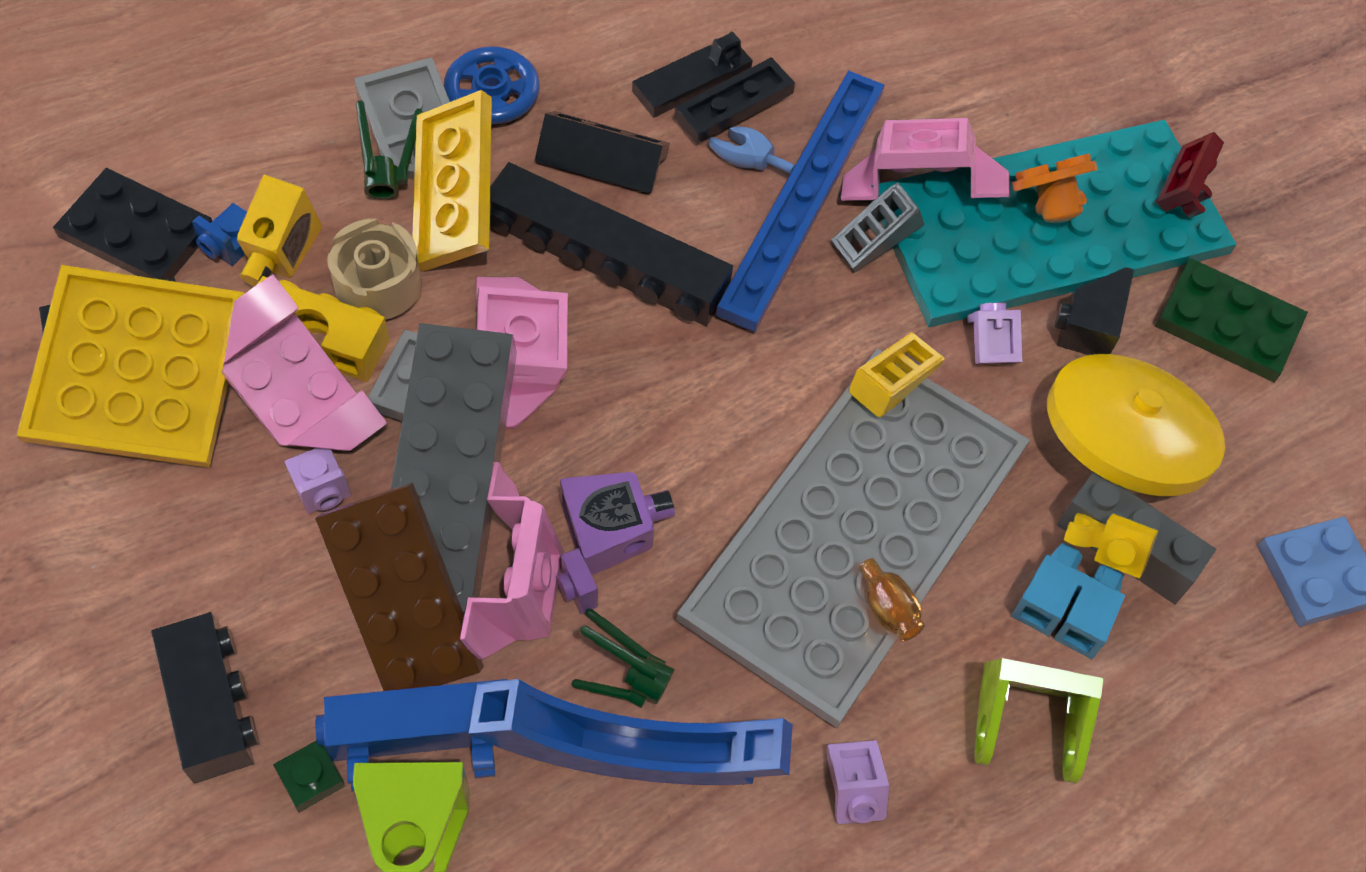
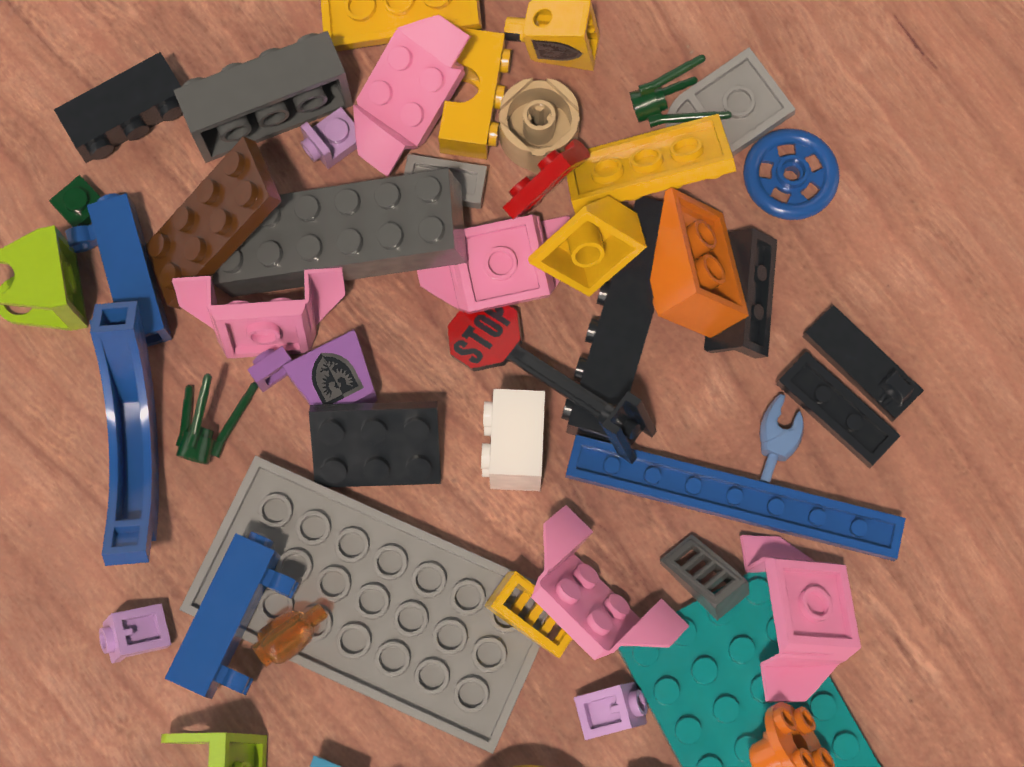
camera: 85 degrees right, 15 degrees up
(250, 524) = (265, 95): none -> dark grey brick
(446, 263) = (554, 168): none -> red plate
(530, 237) = (592, 246): none -> yellow slope
(582, 166) = (695, 268): none -> orange slope
(600, 361) = (495, 338): none -> black piece
(690, 486) = (375, 444): none -> black plate
(717, 349) = (516, 435): none -> white brick
(861, 660) = (225, 615): none -> blue brick
(906, 317) = (586, 605): none -> bright pink piece

